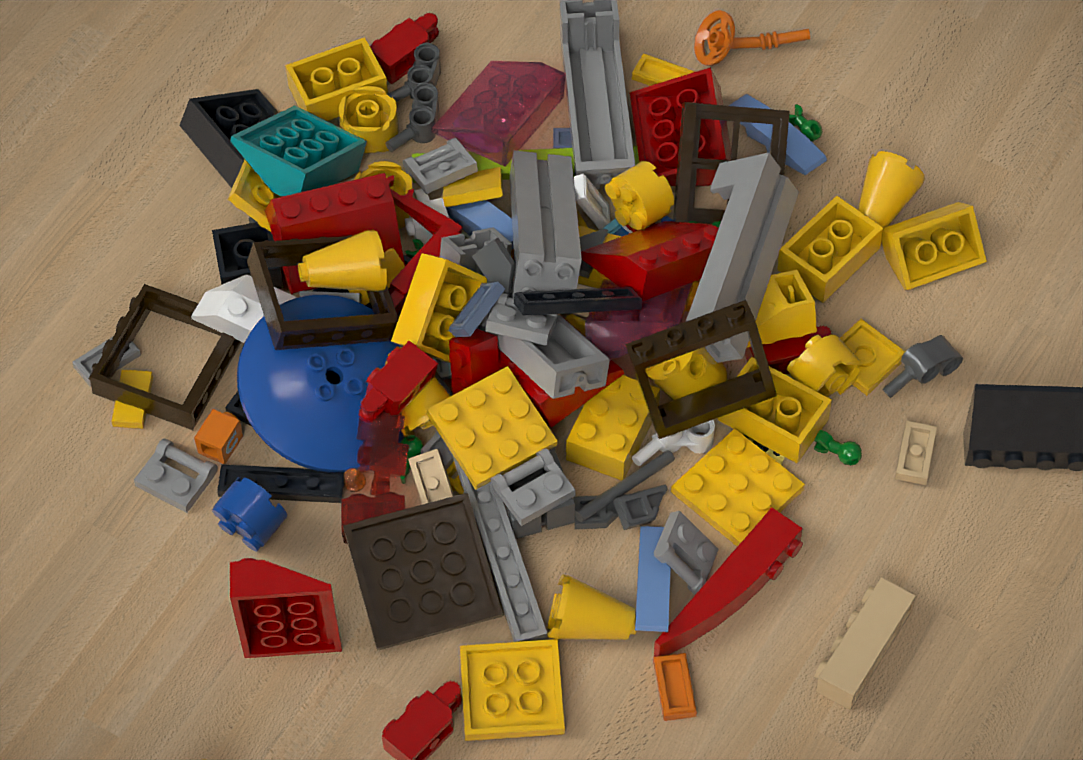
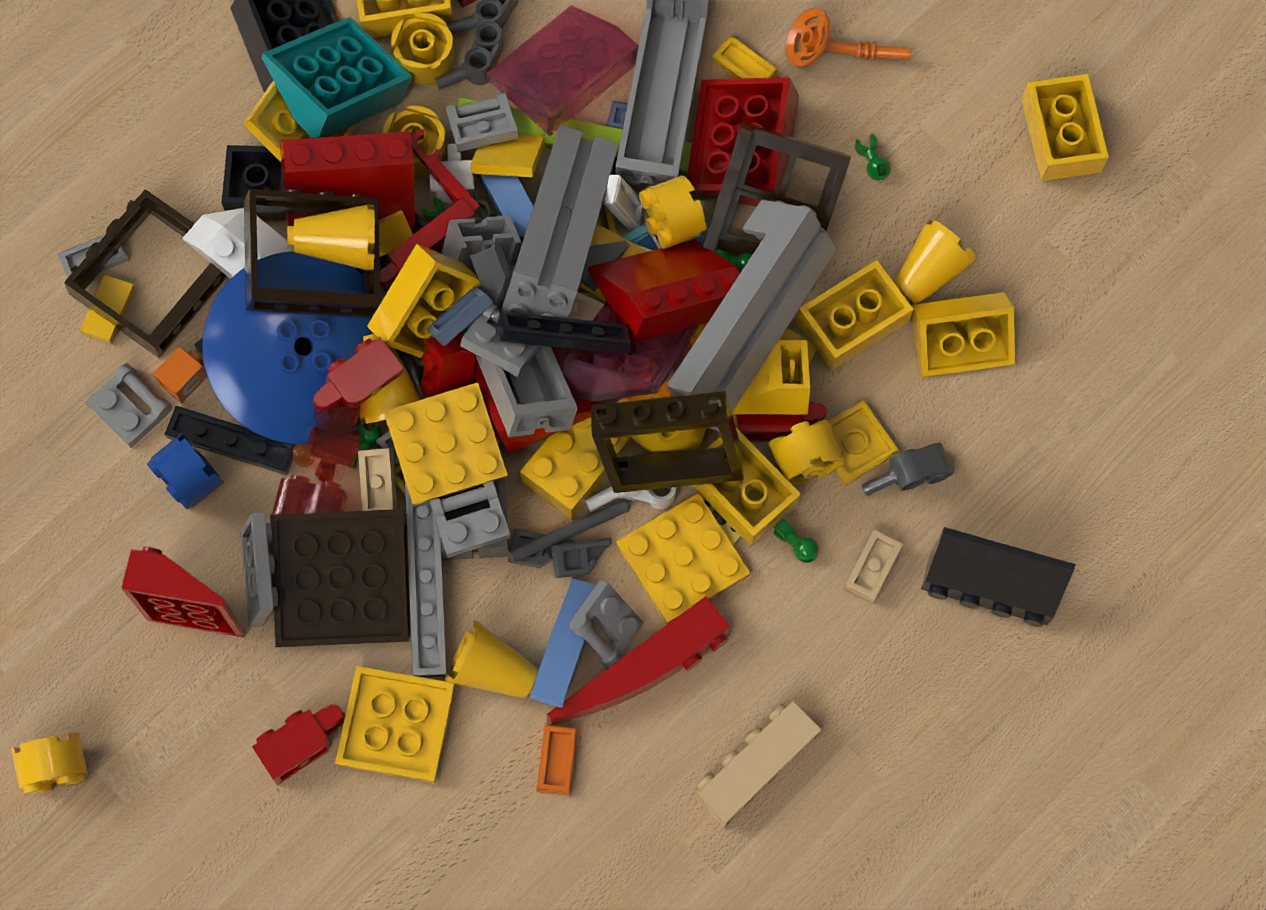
camera: 10 degrees right, 15 degrees up
(340, 570) = (258, 569): none -> light grey plate
(800, 151) = (856, 191): medium blue slope -> none
(966, 60) = (1064, 127): none -> yellow brick

